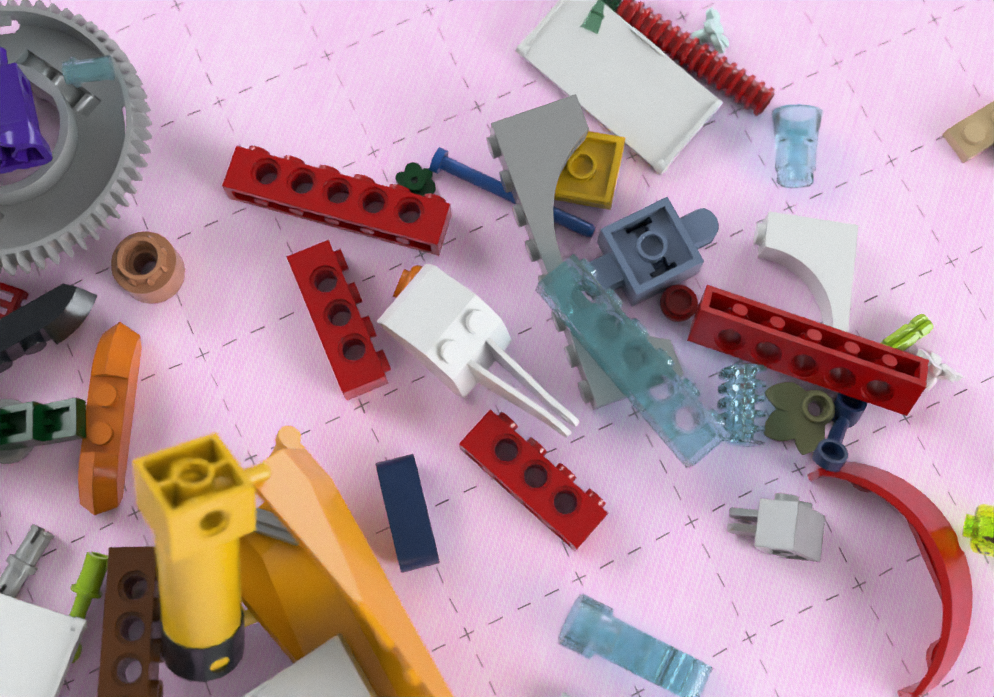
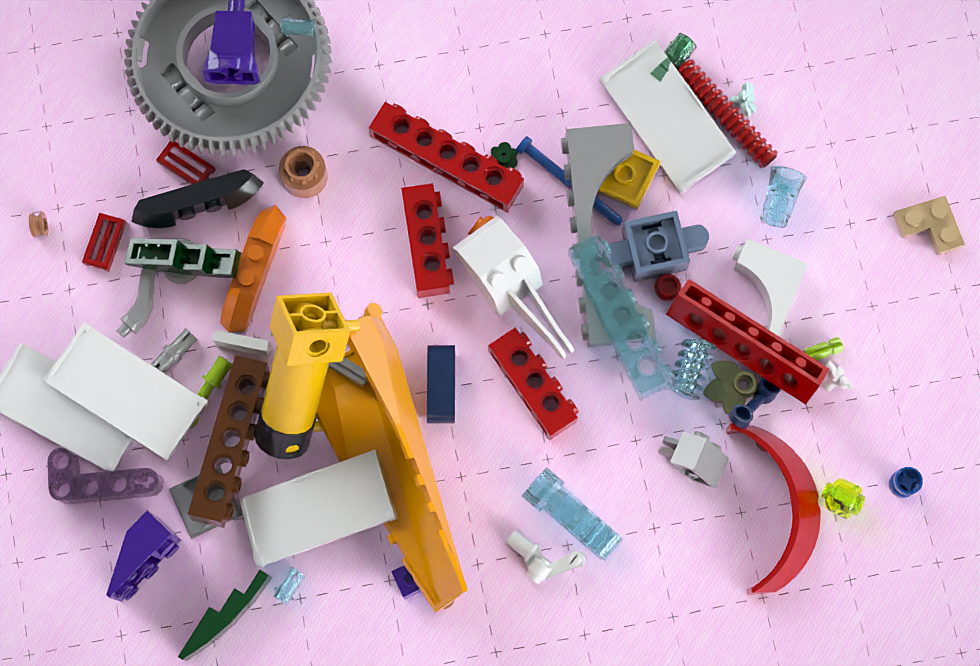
camera: 15 degrees right, 0 degrees up
(110, 526) = (242, 343): none -> white tile

